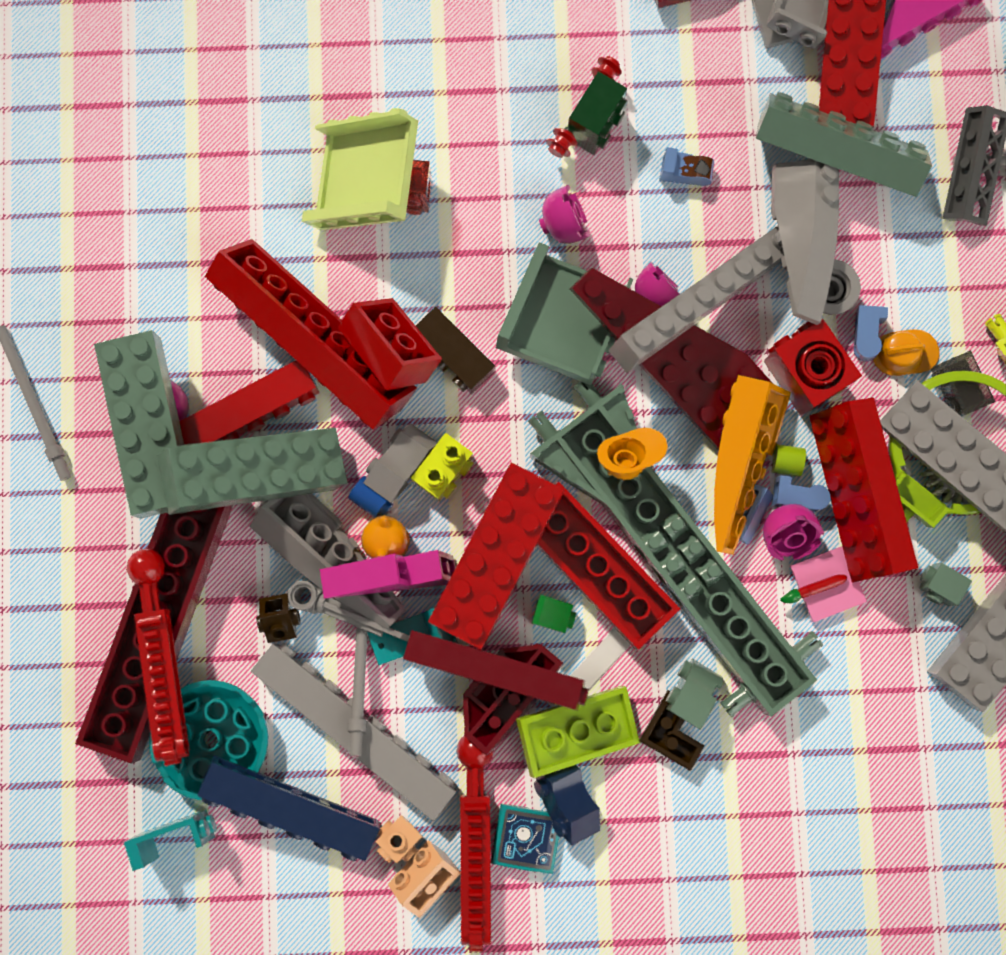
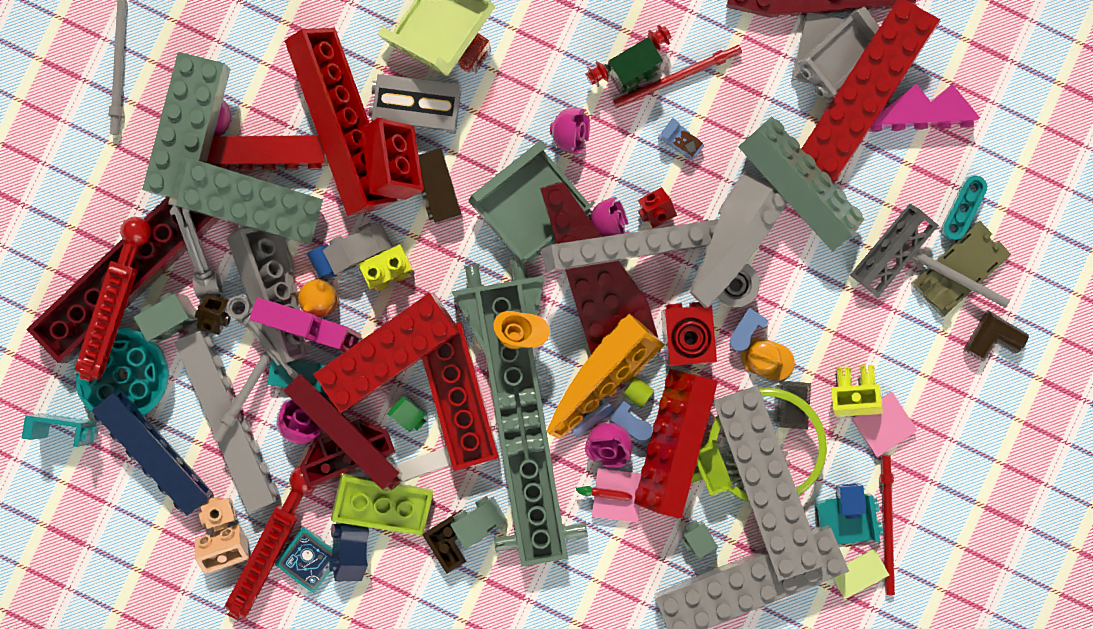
camera: 25 degrees right, 5 degrees up
(227, 648) = (166, 317): none -> sand green brick
(249, 584) = (205, 280): none -> light grey piece
(382, 271) = (416, 102): none -> light grey panel
(435, 690) = (295, 424): none -> dark pink cylinder
(677, 66) = (716, 59): none -> red bar
(701, 251) = (656, 208): none -> red brick

